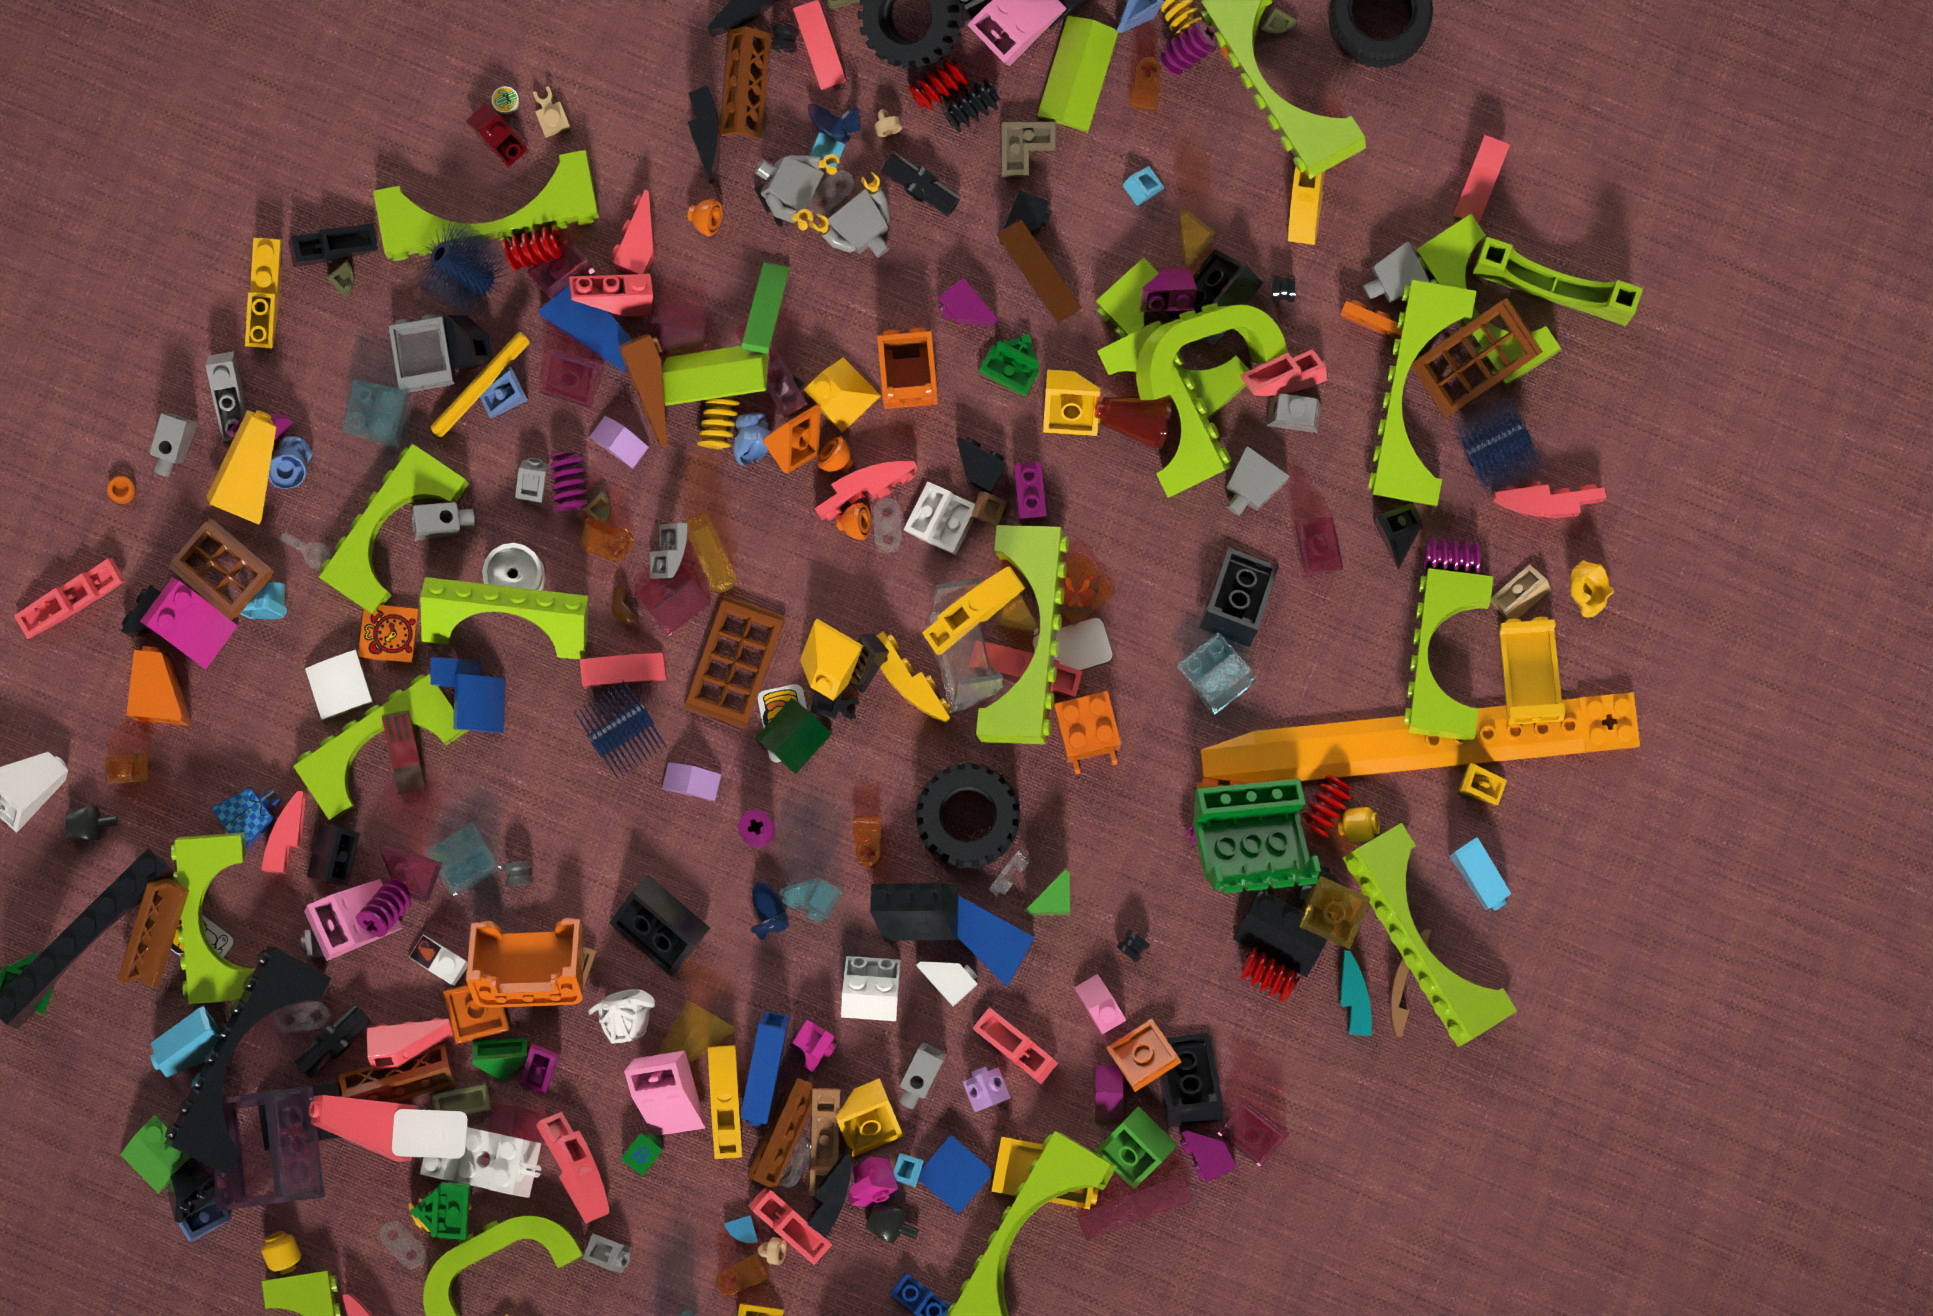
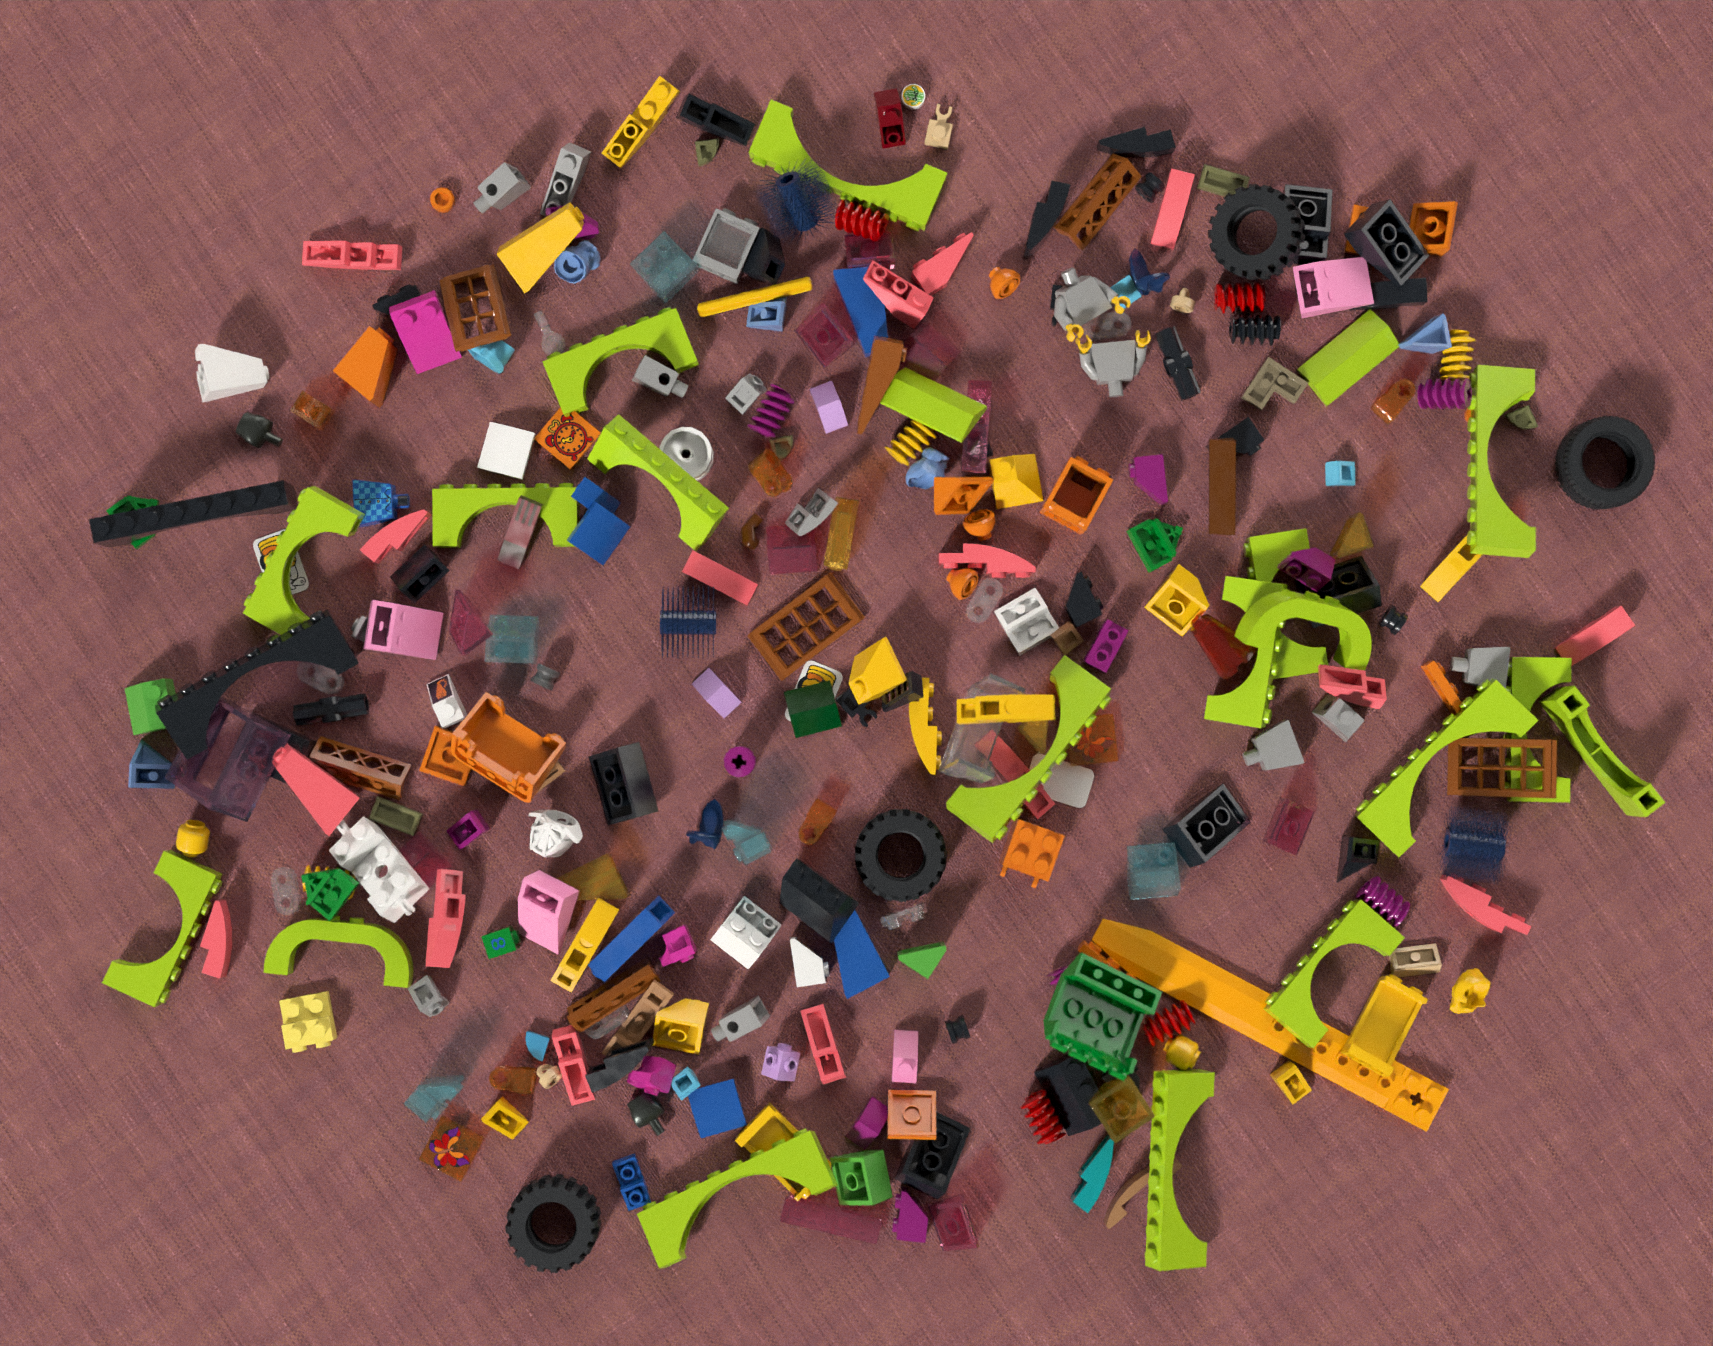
camera: 25 degrees right, 5 degrees up
(156, 933) = (252, 545): dark orange fence -> none
(185, 1043) = (221, 640): medium azure slope -> none
(189, 1192) = (153, 751): black slope -> none
(384, 908) = (429, 638): magenta piece -> none
(401, 1043) = (376, 744): coral slope -> none
(420, 1133) = (346, 823): white sticker -> none
(500, 1056) = (445, 801): green slope -> none
(765, 308) = (1001, 380): bright green tile -> none
(1481, 874) = (1247, 1148): medium azure slope -> none

